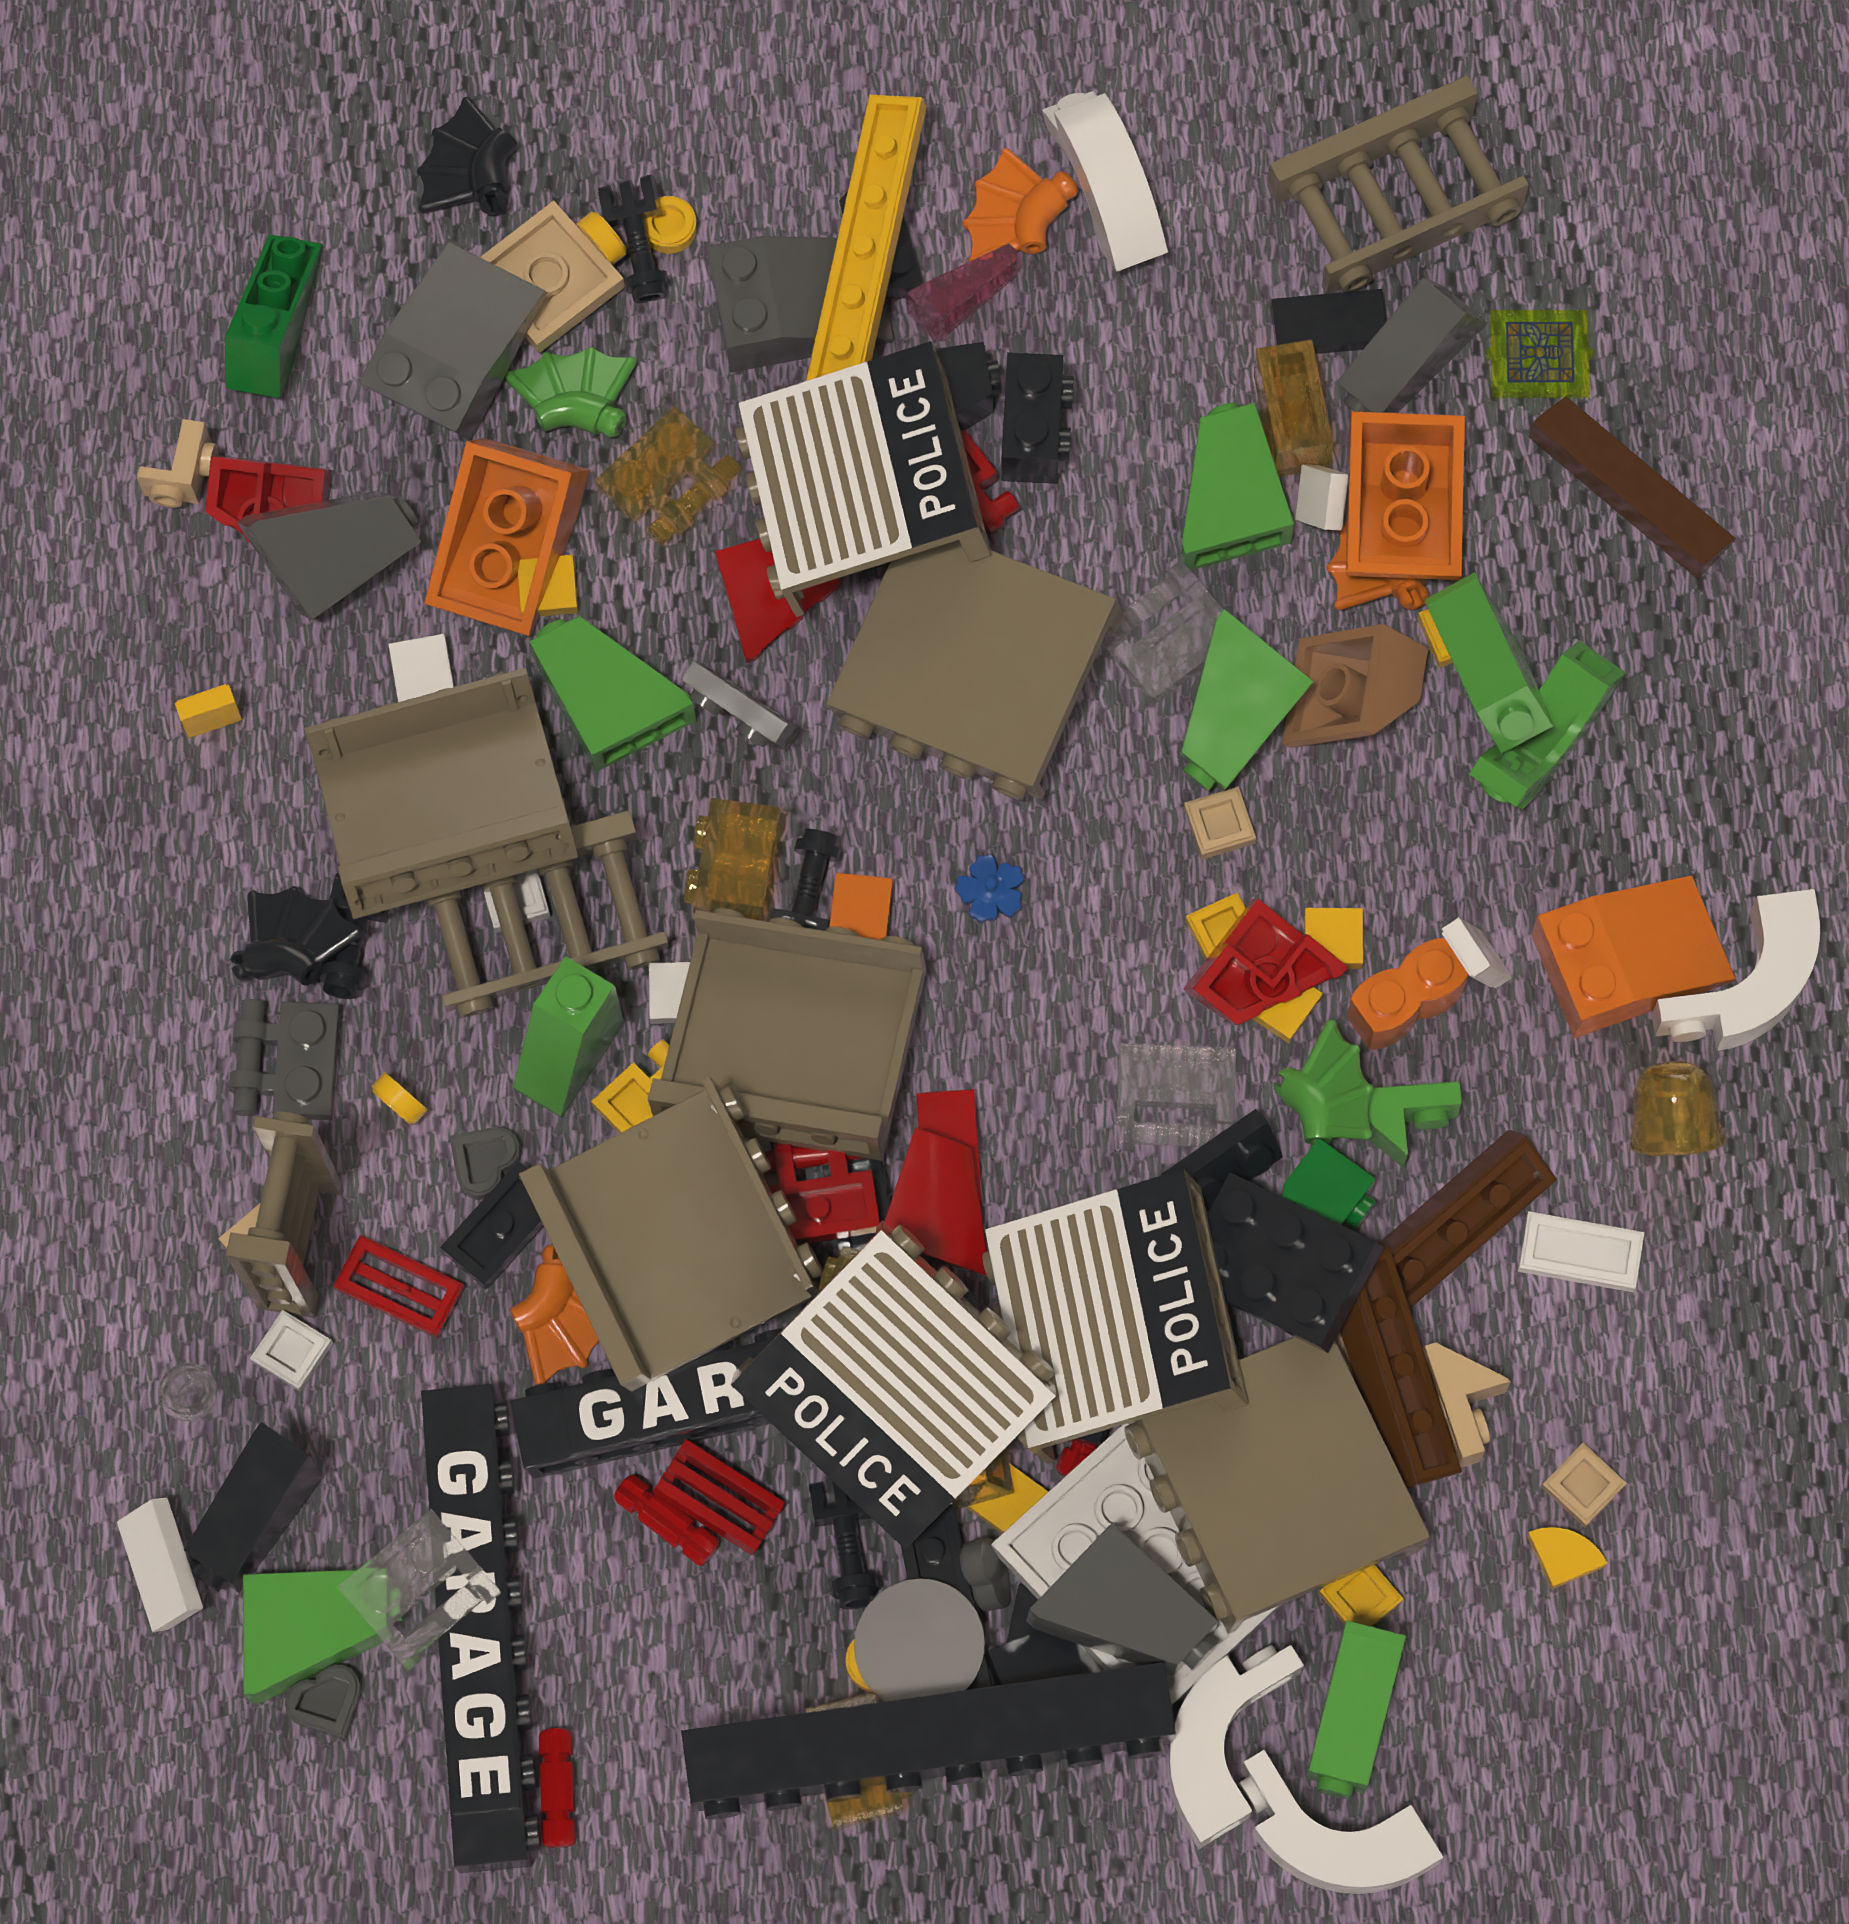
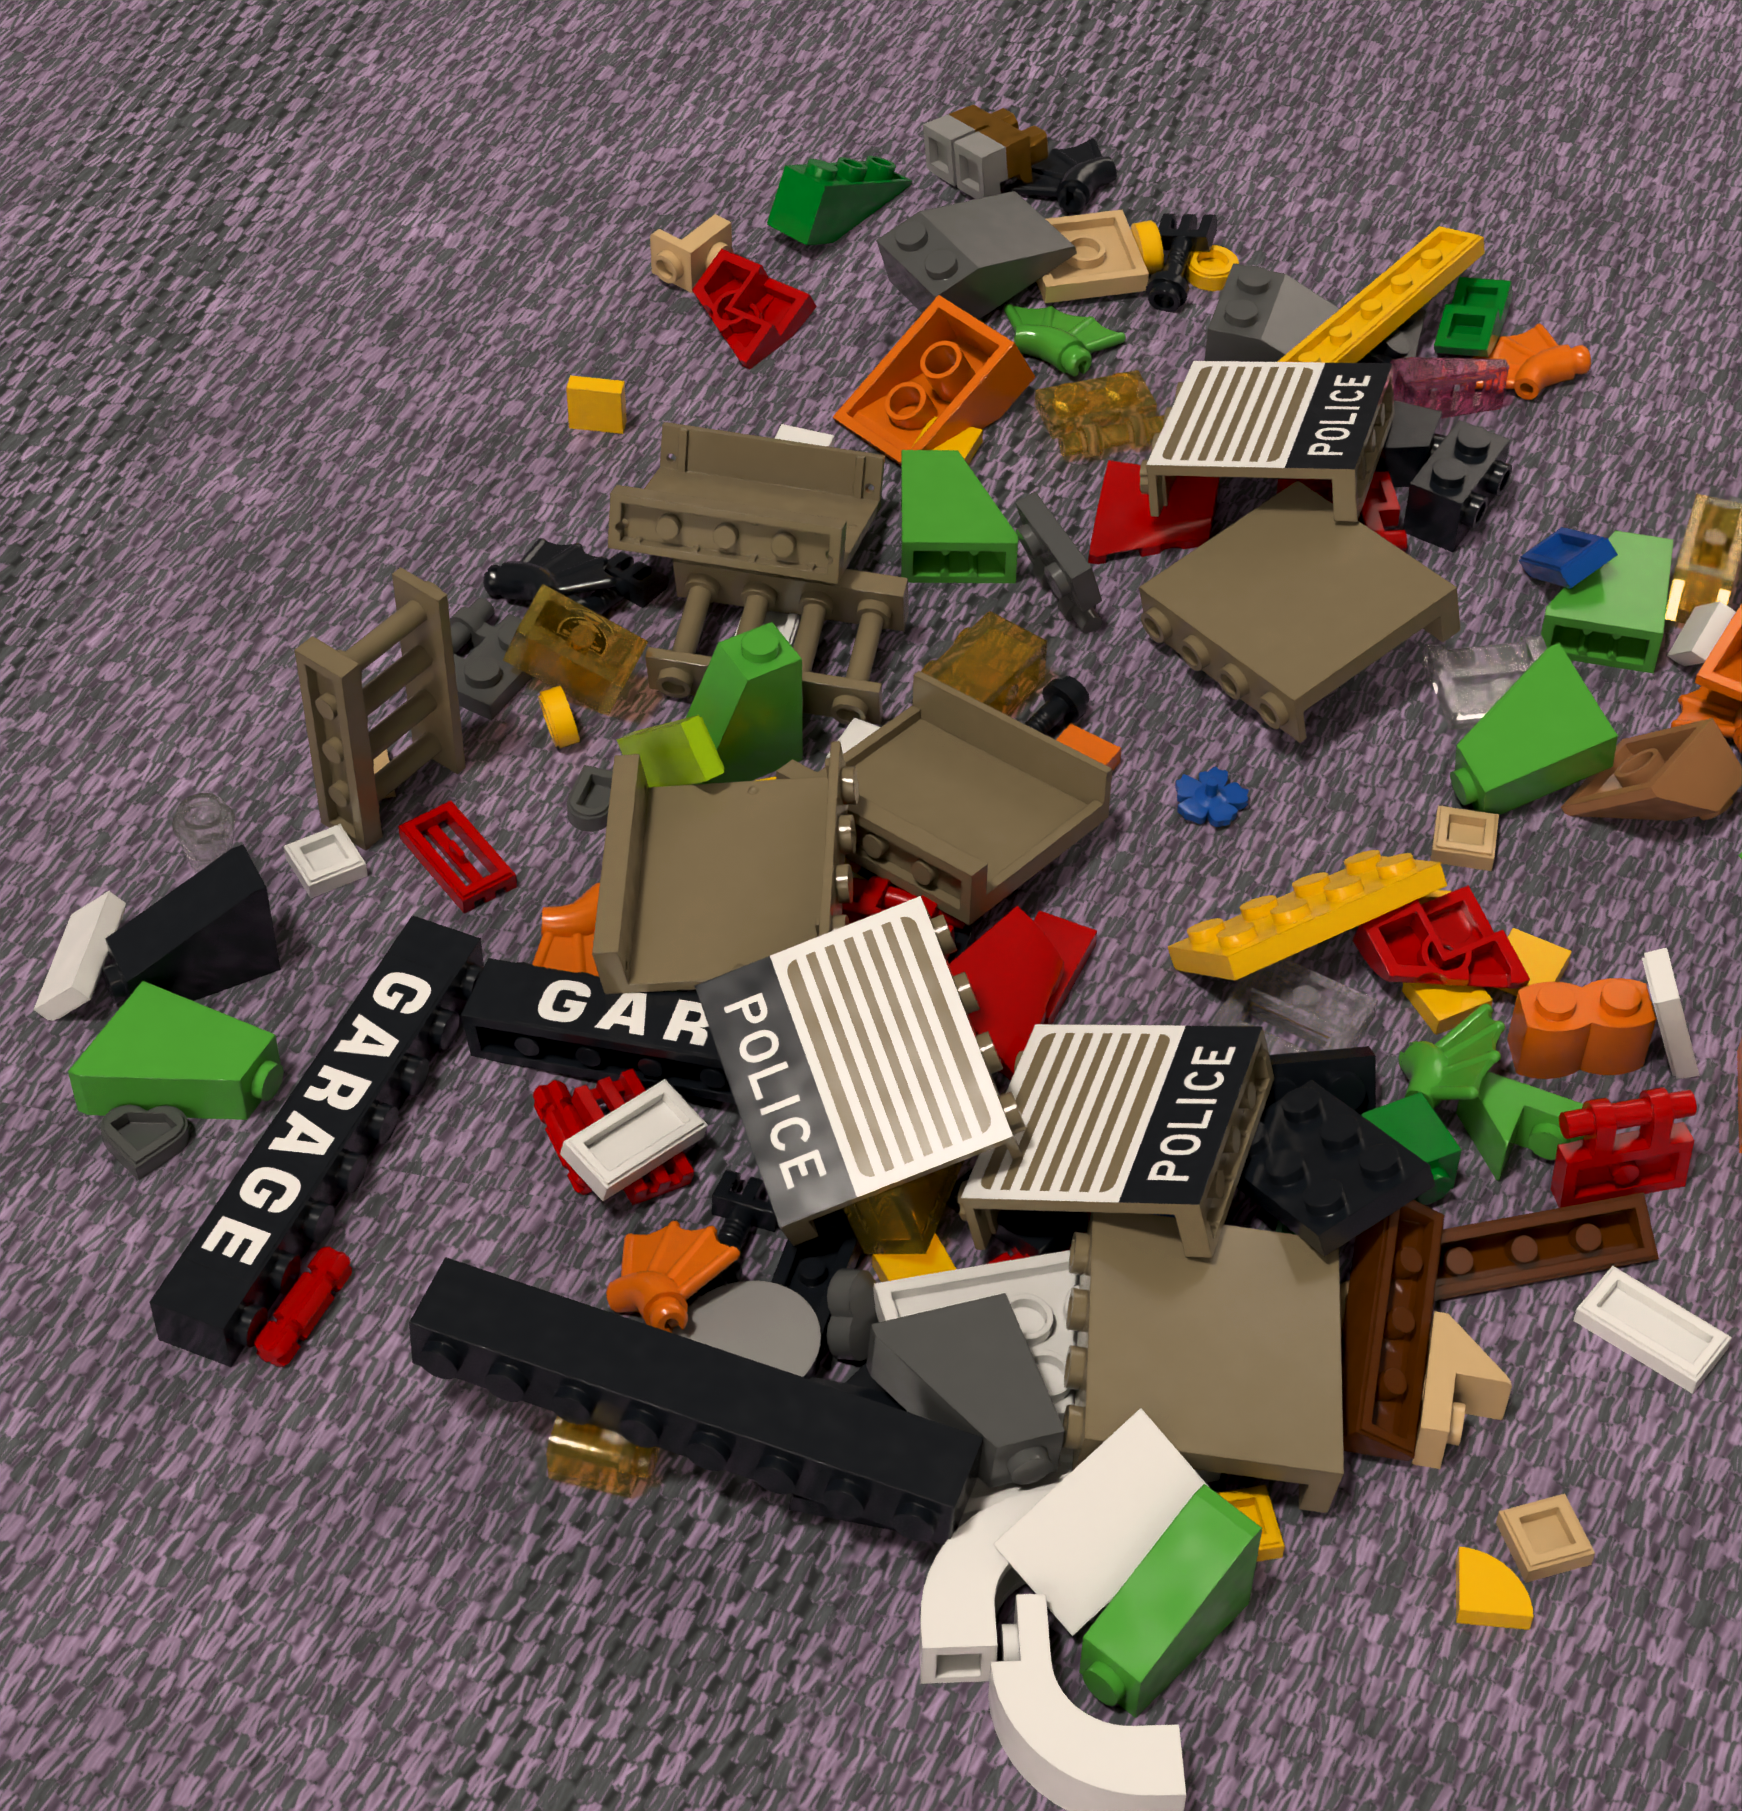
camera: 25 degrees right, 25 degrees down
(331, 545) = (779, 333): dark grey slope -> none
(377, 189) = (982, 149): none -> light grey hips
(381, 1033) = (575, 649): none -> clear yellow brick
(405, 1575) = (285, 1035): clear plate -> none
(495, 1230) = (563, 849): black plate -> none
(543, 1120) = (675, 752): none -> lime tile
(729, 1509) = (633, 1139): none -> white tile
(824, 1614) = (665, 1271): none -> orange arm
(946, 179) = (1474, 317): none -> green slope
(1109, 176) = (1623, 356): white arch -> none
(1142, 997) = (1309, 915): none -> yellow plate
(1172, 469) = (1567, 557): none -> blue tile
(1279, 1669) = (1100, 1521): none -> white sticker
(1495, 1105) = (1628, 1162): none -> red plate

